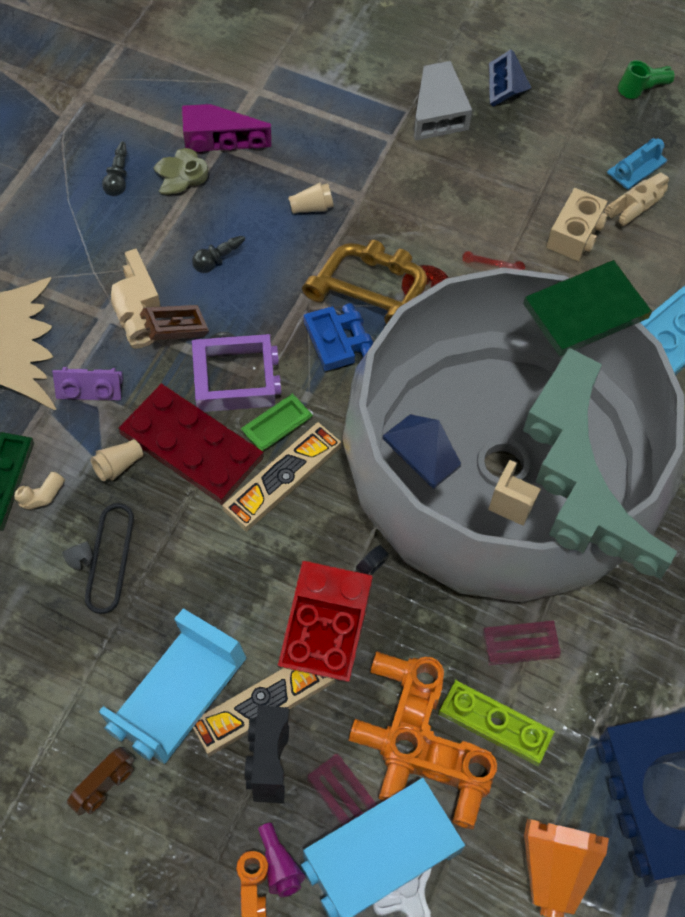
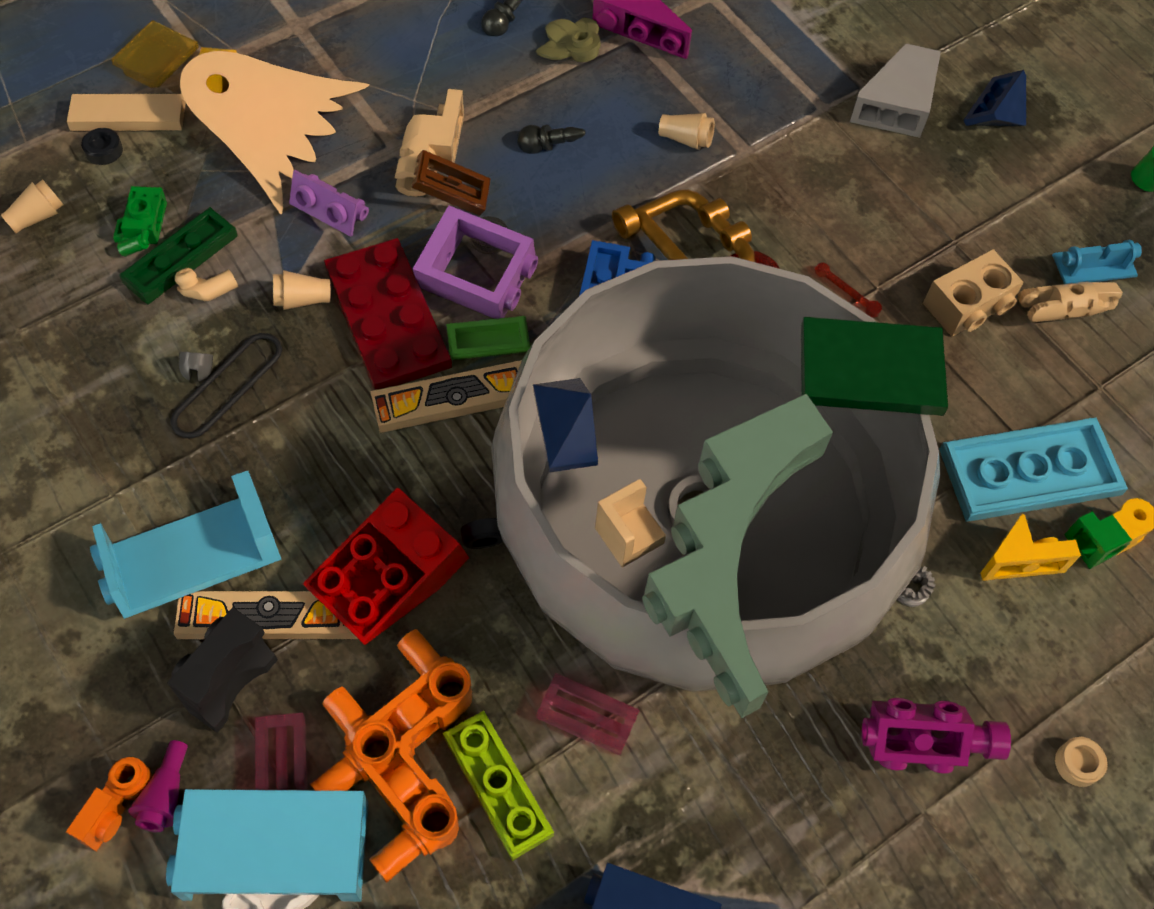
camera: 30 degrees right, 0 degrees up
(90, 792) = (49, 598): reddish brown plate -> none

